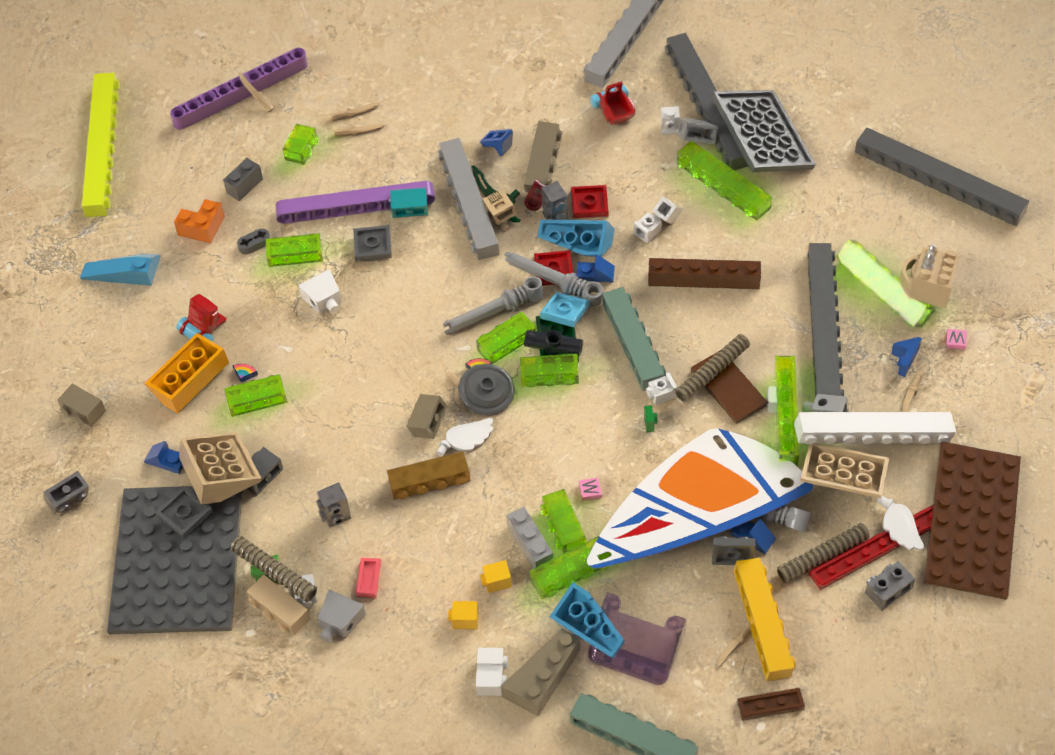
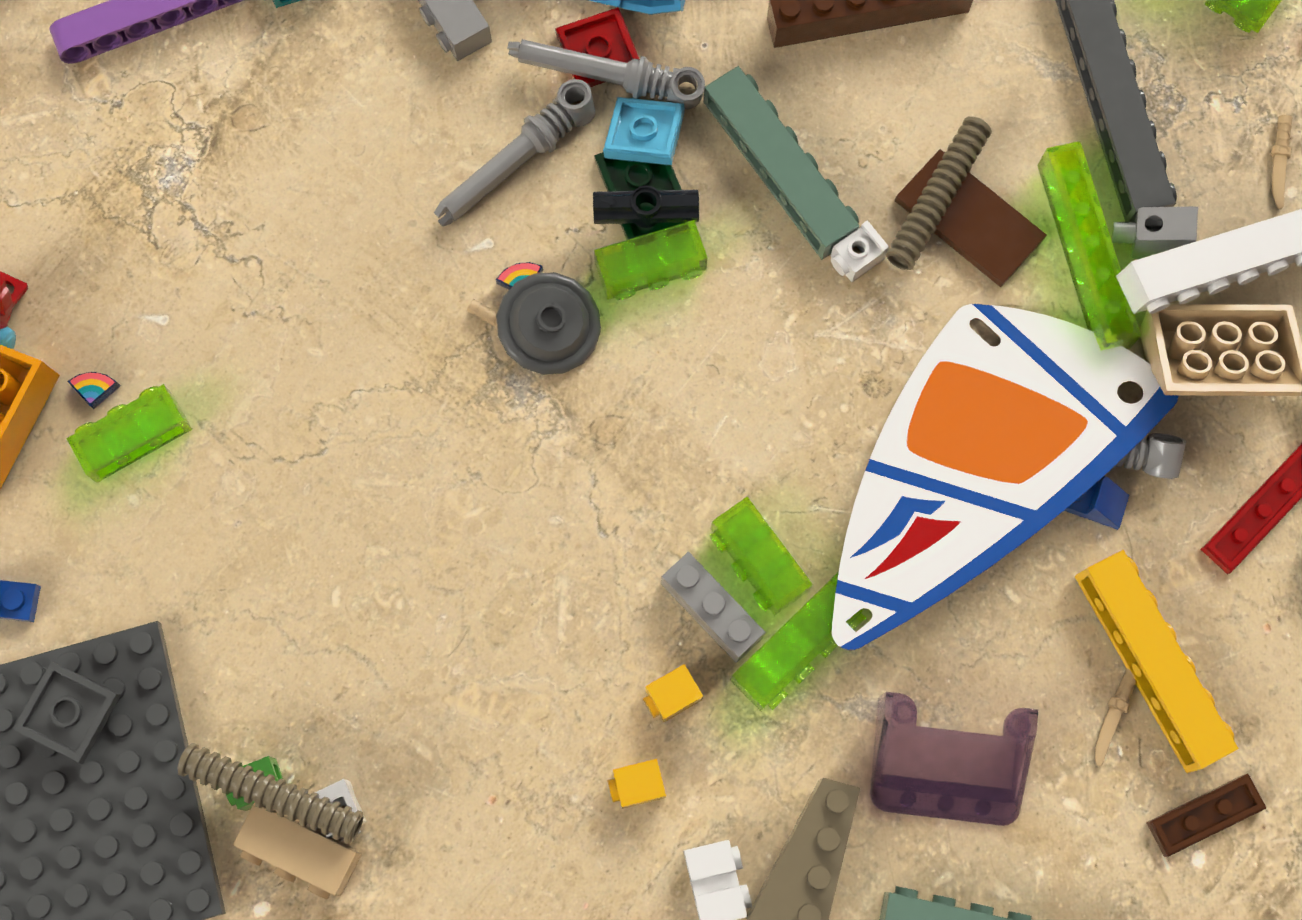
camera: 20 degrees left, 20 degrees up
(217, 466) = (104, 604): tan slope -> none
(253, 241) = (31, 113): dark grey beam -> none
(268, 467) = (182, 586): dark grey brick -> none
(294, 250) = (112, 116): clear neon green brick -> none
(321, 293) = (191, 194): white torso -> none
(333, 505) = (341, 631): flat silver brick -> none
(339, 616) = (413, 844): light grey torso -> none
(368, 577) = (443, 748): coral tile -> none
(372, 243) = (254, 70): dark grey plate -> none
(427, 416) = (458, 406): dark tan brick -> none
(428, 475) = (495, 522): pearl gold brick -> none
(466, 436) = (538, 424): white animal -> none
(504, 337) = (553, 211): clear neon green brick -> none
(584, 618) = (864, 755): dark azure wedge -> none
(590, 489) = (786, 477): bright pink tile -> none
(599, 271) = (674, 41): blue slope -> none
(650, 418) = (854, 316): green plate -> none
(729, 550) = (1062, 549): dark grey plate -> none
(772, 400) = (1054, 226): white tile -> none
(822, 553) = (1219, 507): dark tan piece -> none
(906, 351) = (1259, 85): blue slope -> none

